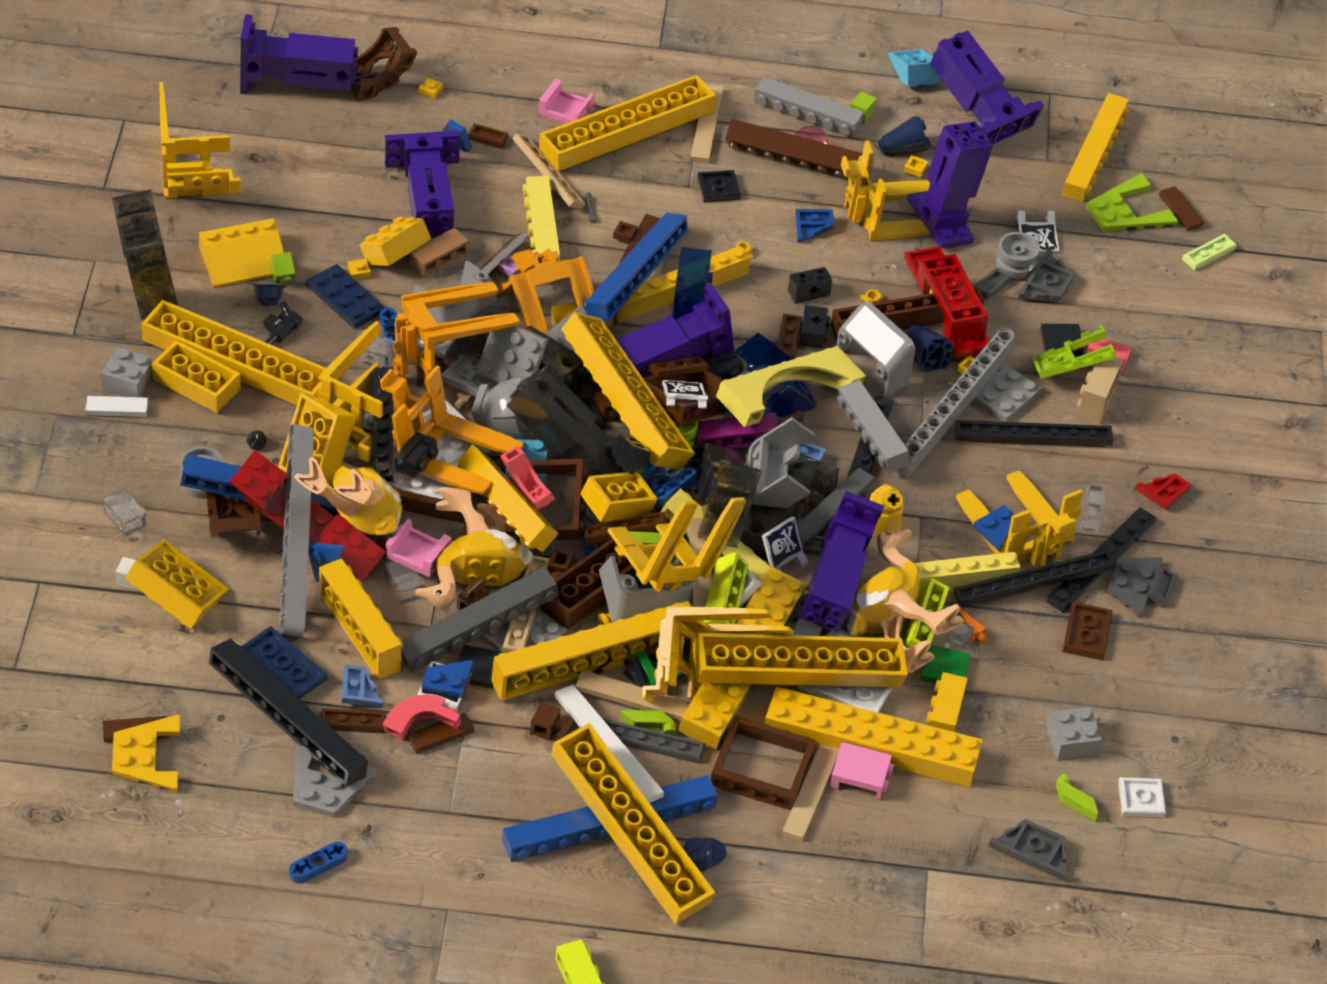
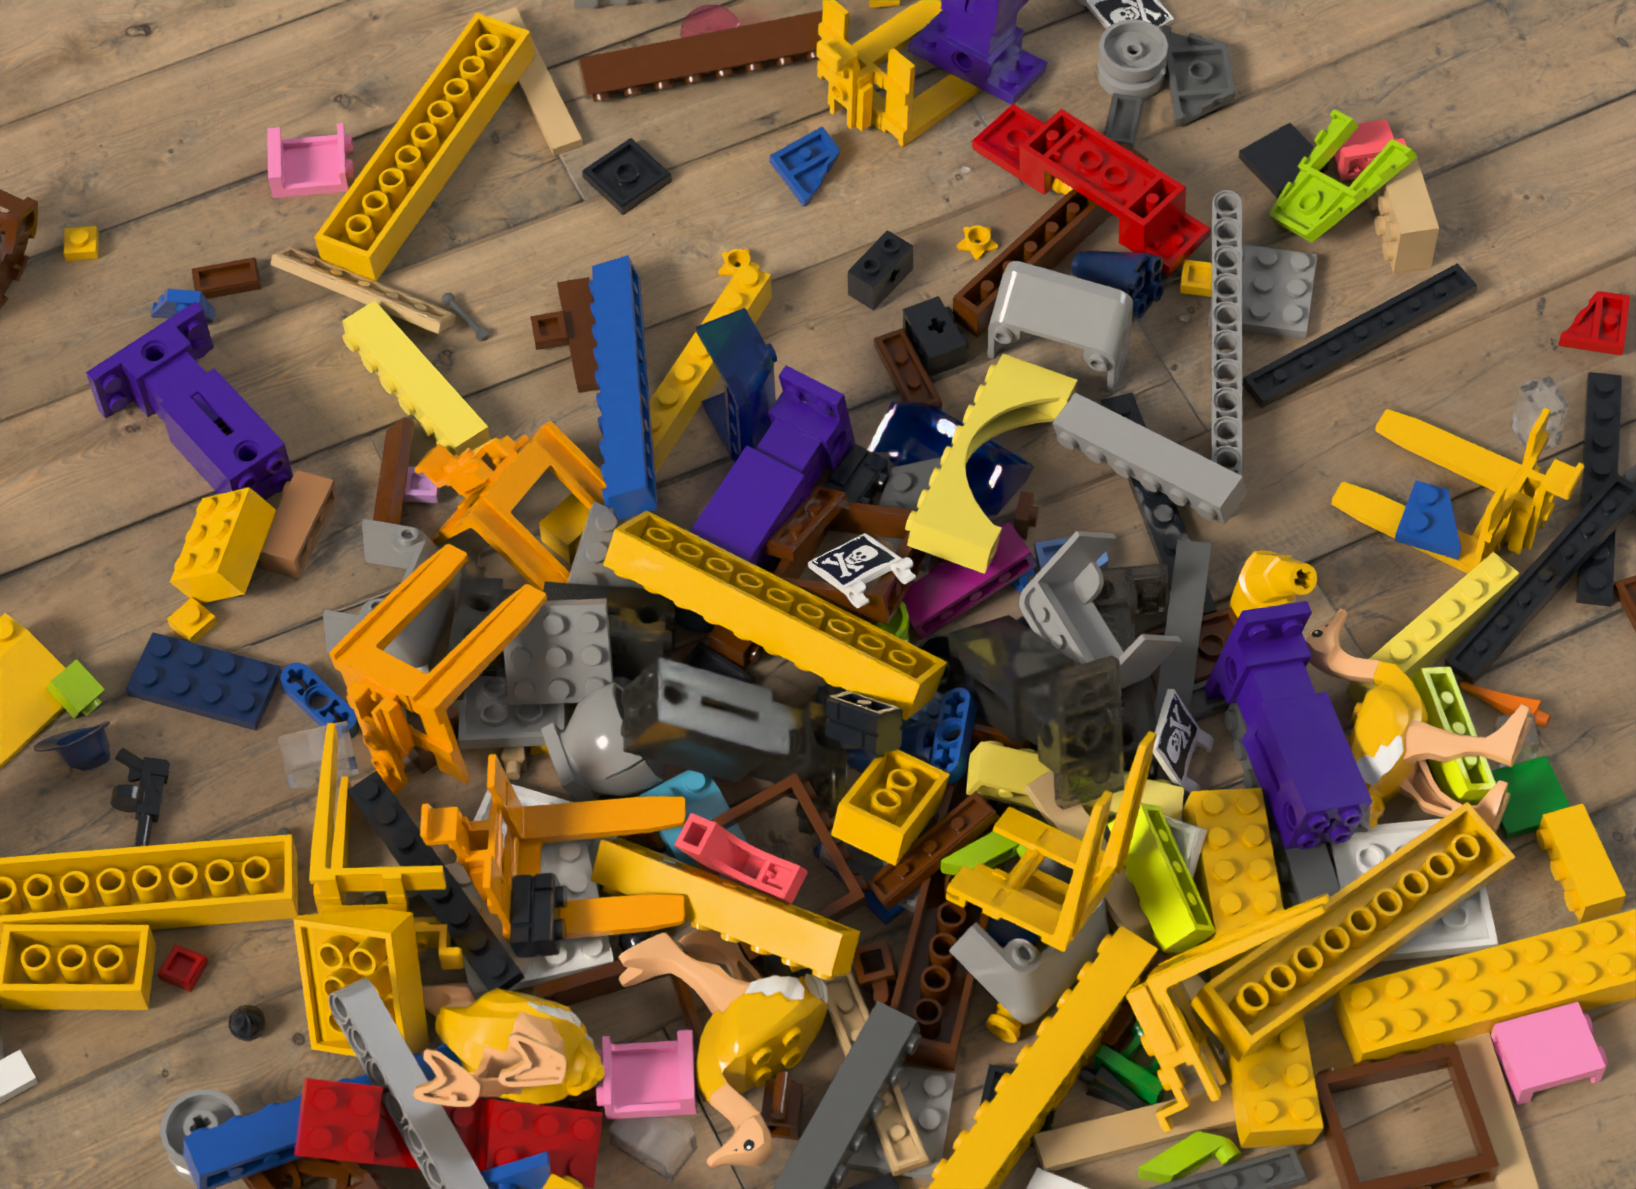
camera: 25 degrees left, 10 degrees up
(245, 405) = (182, 967): none -> red tile

